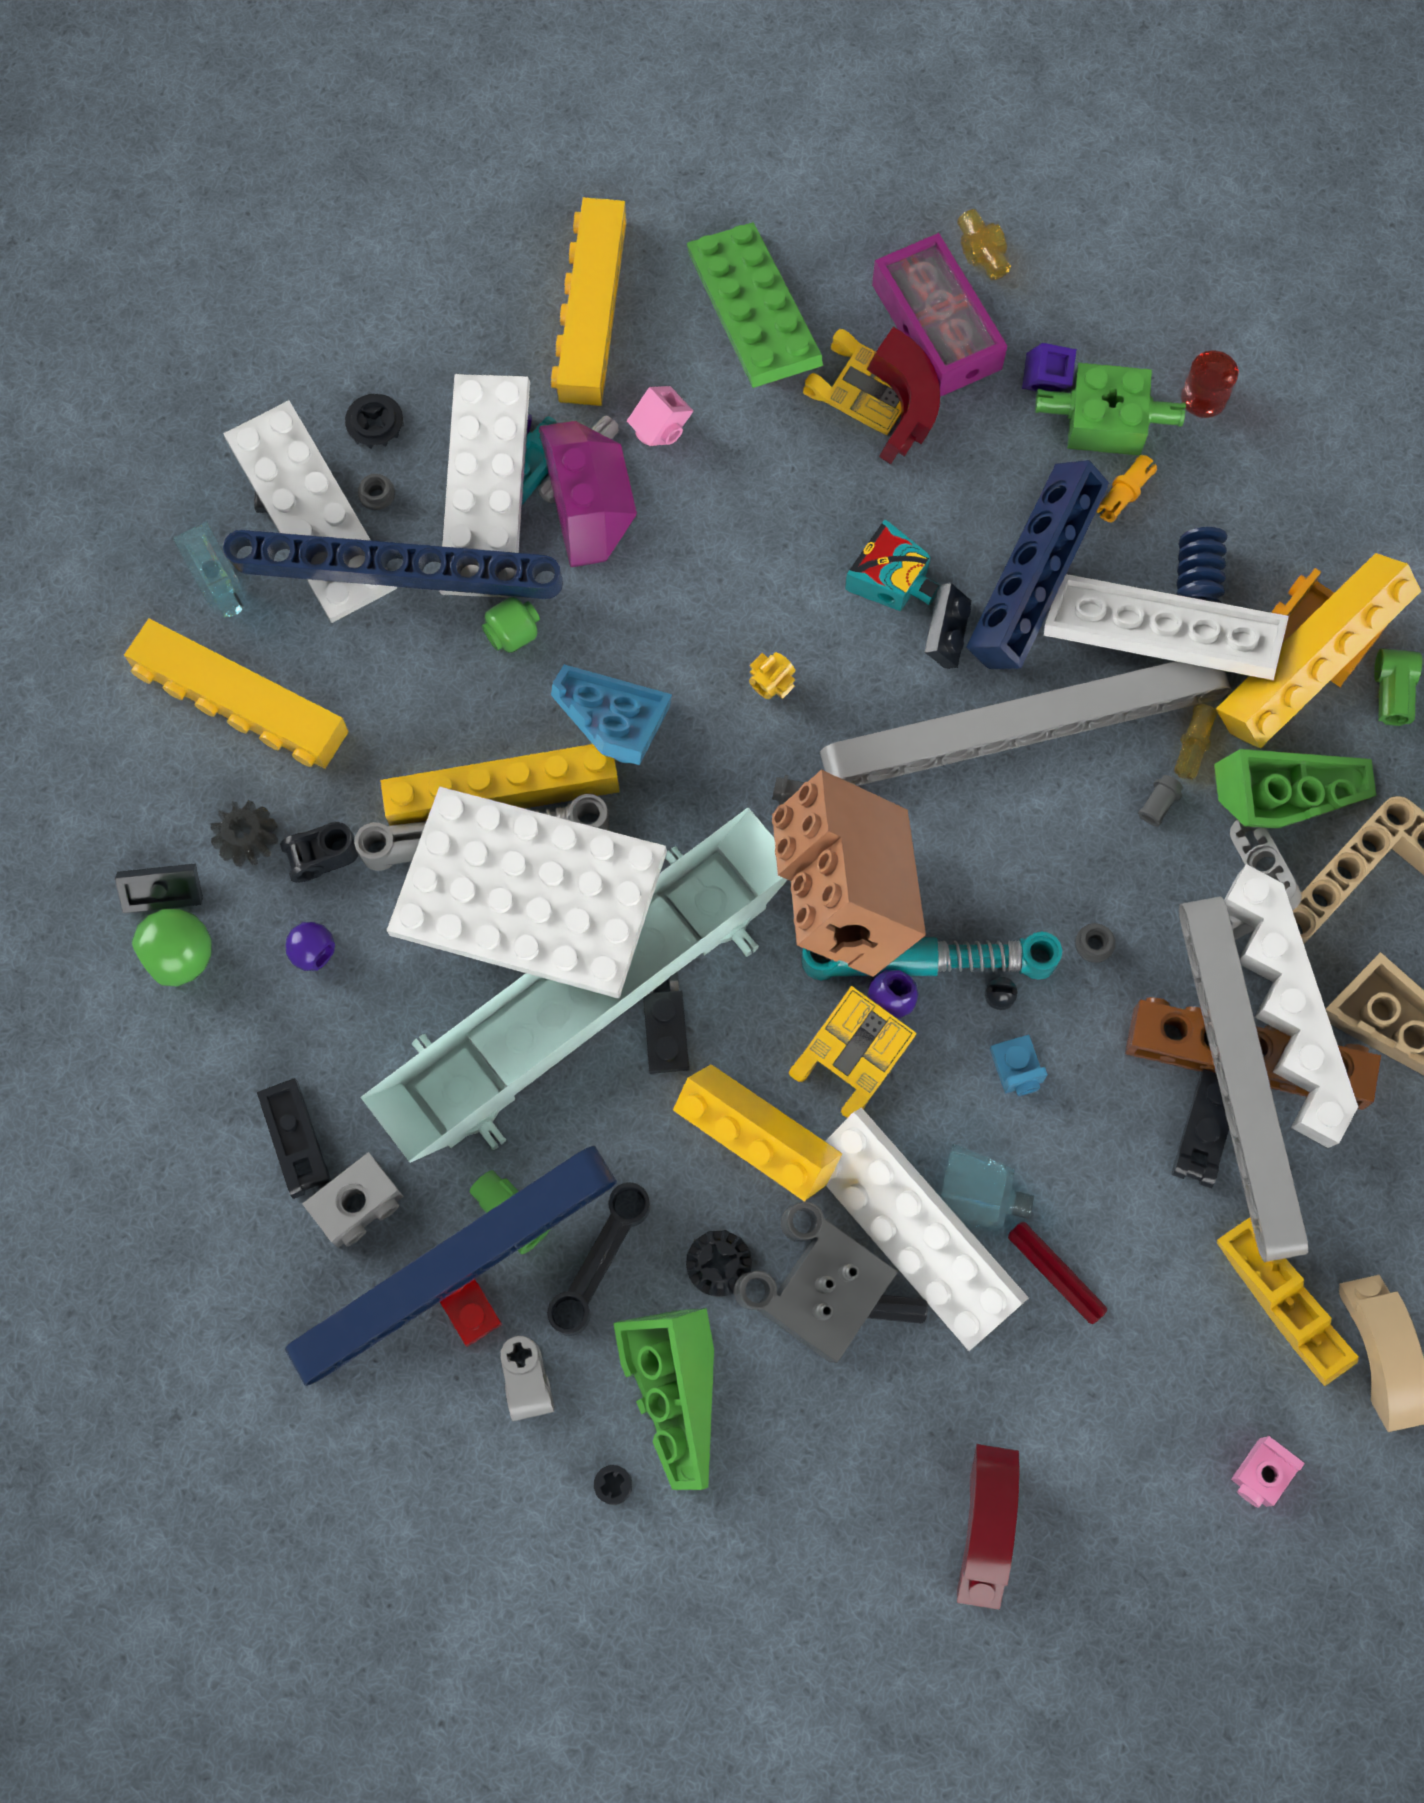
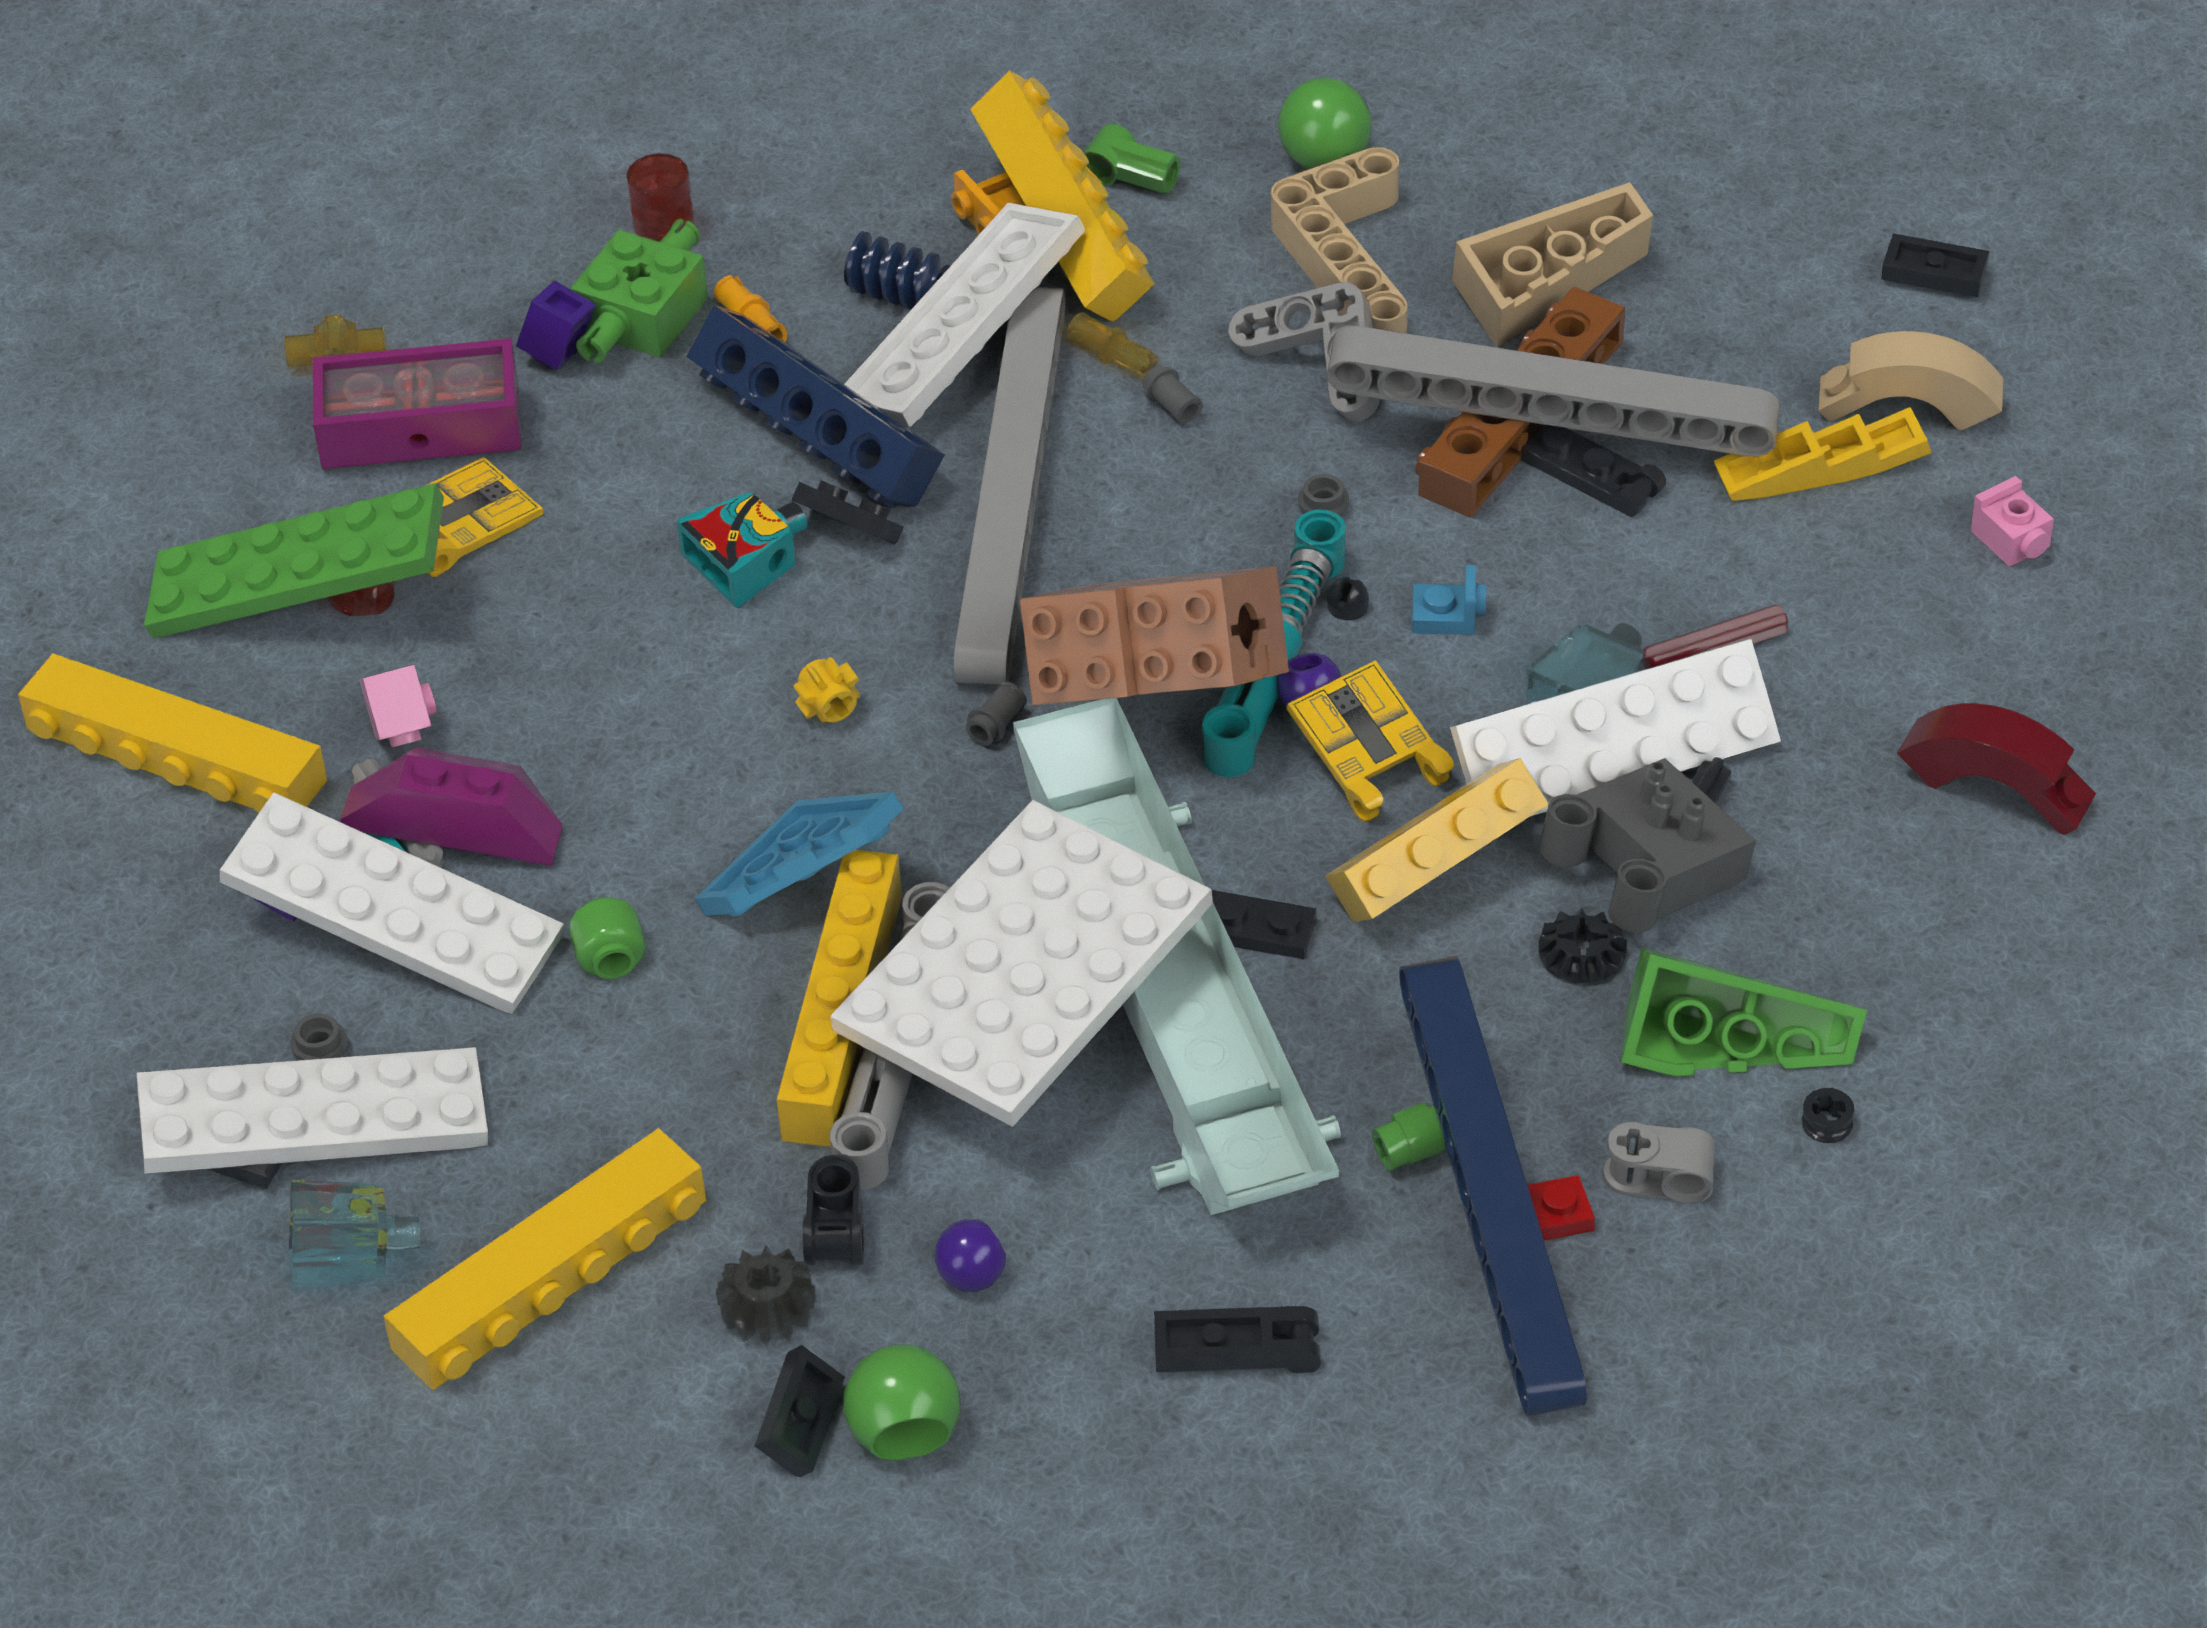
camera: 70 degrees left, 25 degrees down
(330, 1202) = (1354, 1287): light grey brick -> none
(372, 407) = (215, 1002): black gear -> none
(379, 553) = (464, 1009): dark blue beam -> none
(599, 1258) = (1547, 1069): black piece -> none
(915, 381) = (509, 453): dark red arch -> none
(1287, 788) = (1208, 281): bright green wedge -> none
(1293, 1006) = (1495, 312): white brick -> none

